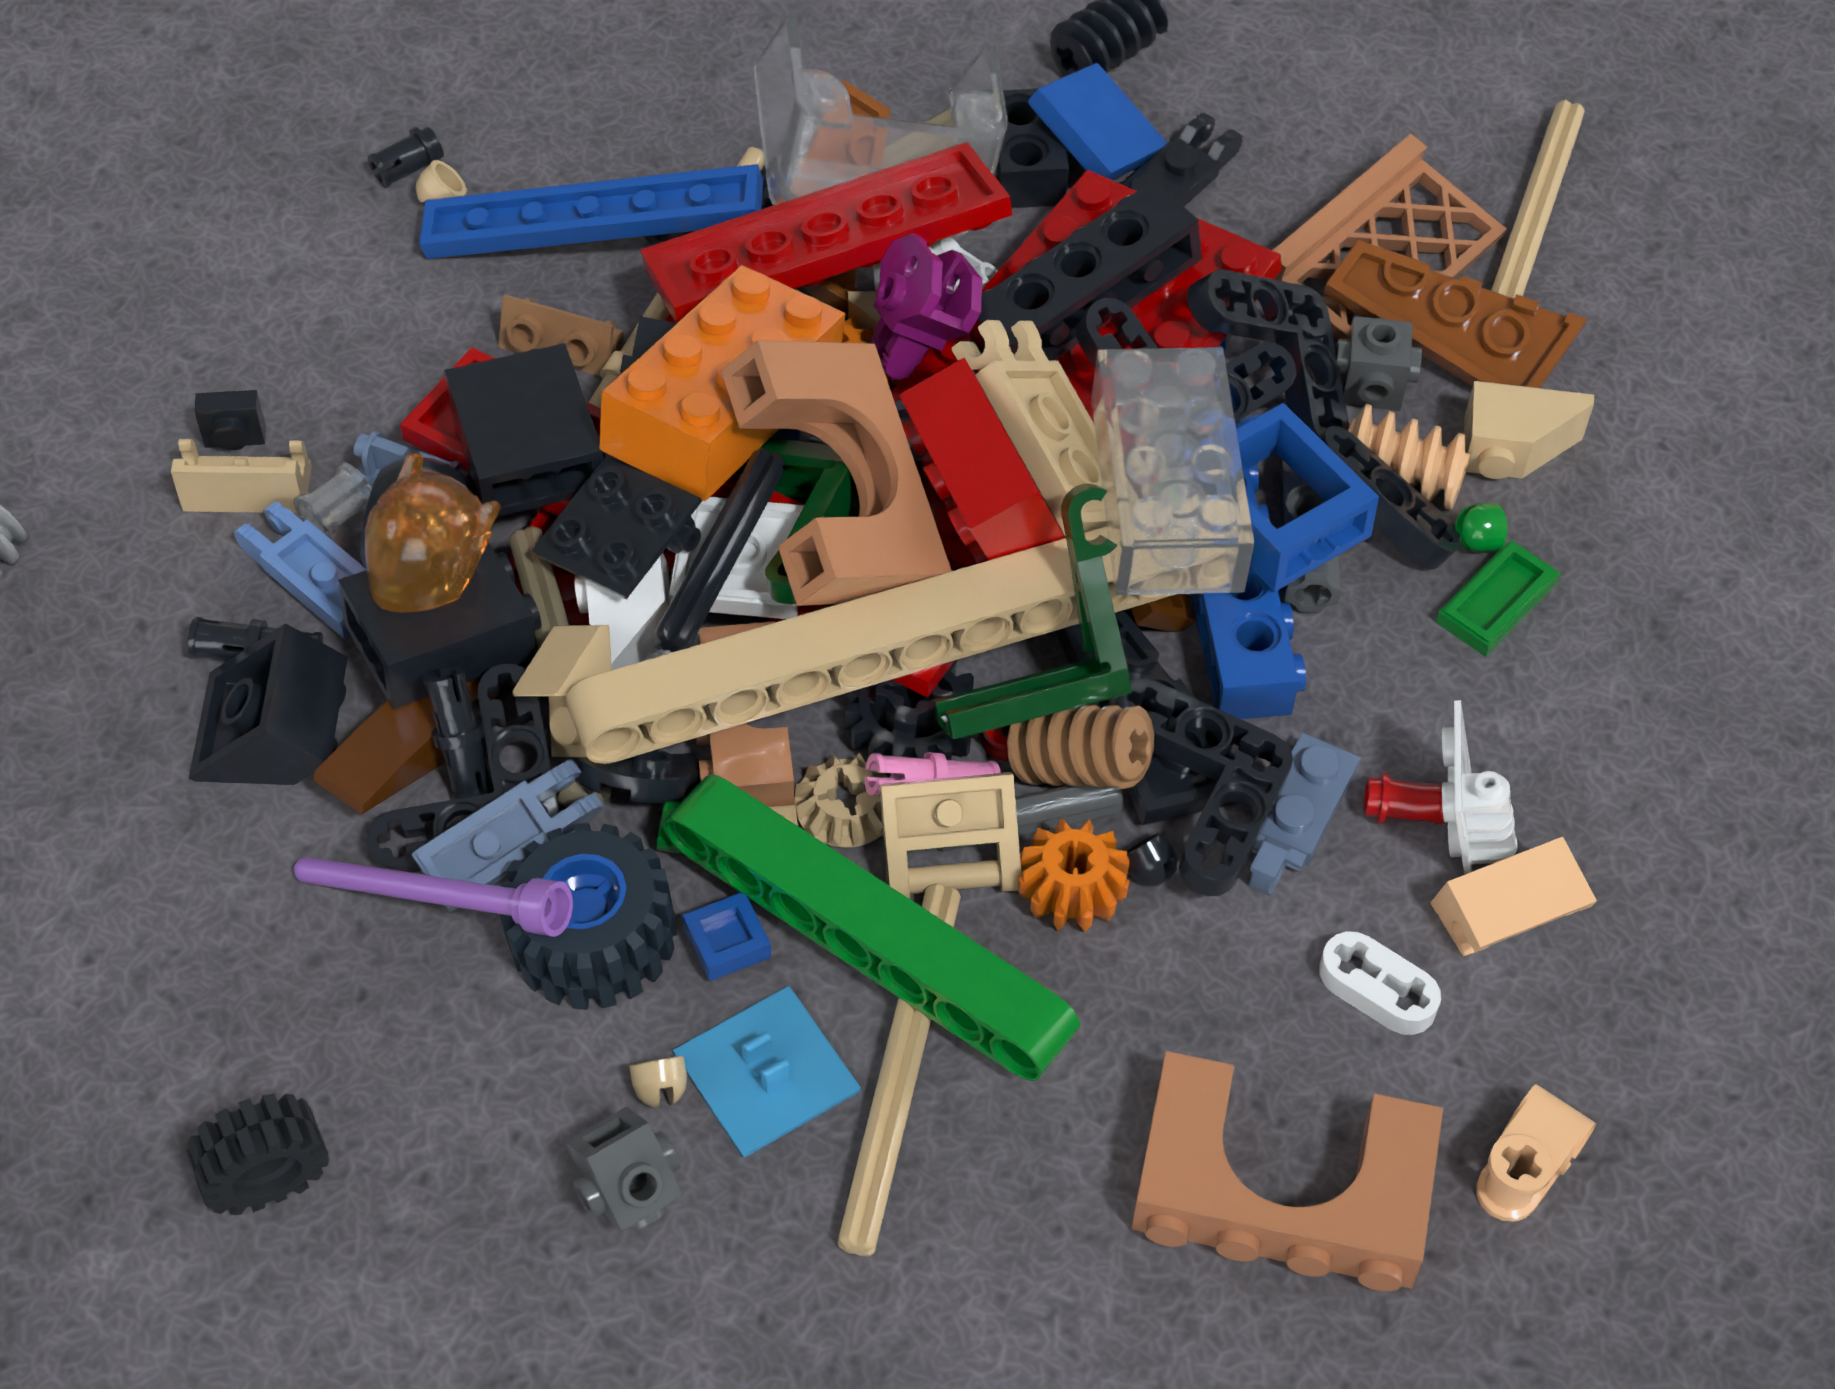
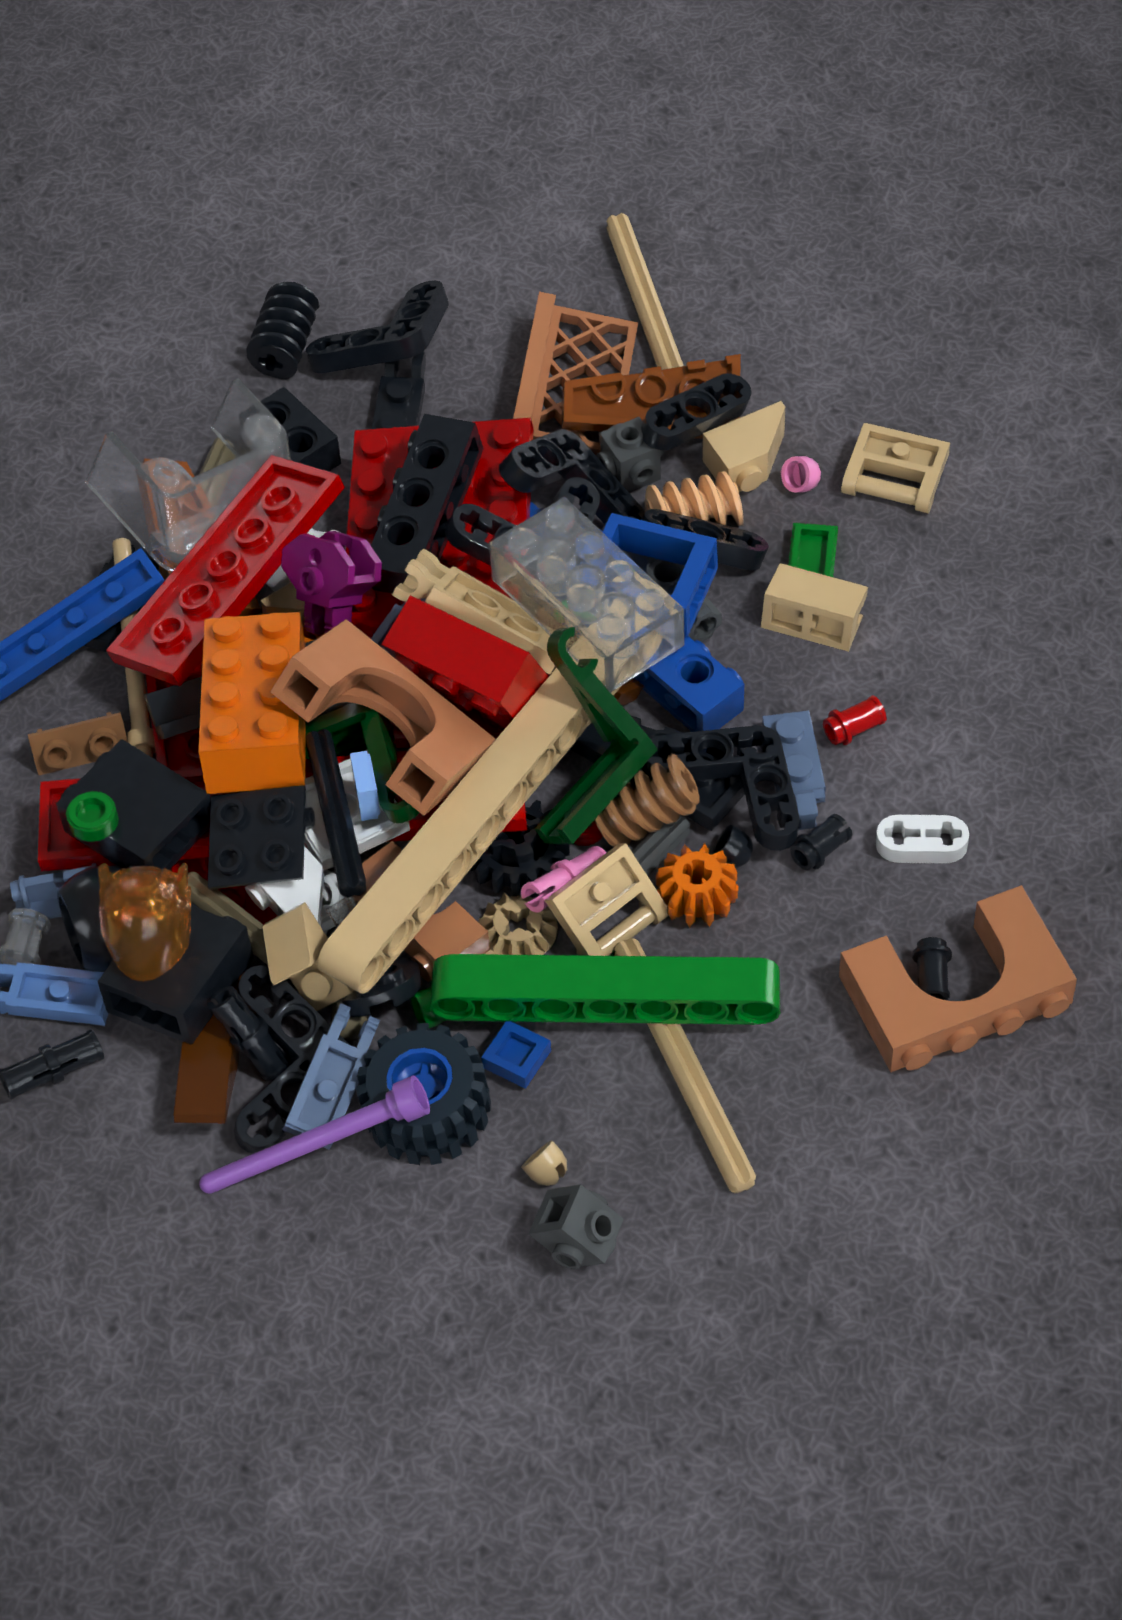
camera: 30 degrees left, 0 degrees up
(257, 1154) = (344, 1364): black tyre -> none
(271, 712) = (101, 1100): black slope -> none
(463, 403) = (92, 816): none -> green tile
(765, 535) = (365, 785): none -> light blue tile
(766, 1071) = (603, 1119): dark azure piece -> none
(1097, 122) = (329, 395): blue tile -> none
(1215, 104) = (402, 339): none -> black beam
(1254, 914) = (811, 849): none -> black pin
(1269, 1141) = (932, 962): none -> black pin
(1457, 644) = (813, 607): none -> tan hinge
(1460, 364) = (686, 426): none -> black beam
(1474, 804) = (908, 695): white hinge -> none
(1482, 527) = (772, 524): green hinge -> none
(1512, 896) = (962, 740): light nougat hinge -> none
(1536, 1150) = (1083, 883): light nougat piece -> none
(1561, 491) = (800, 474): none -> bright pink hinge
(1693, 534) = (898, 456): none -> tan plate

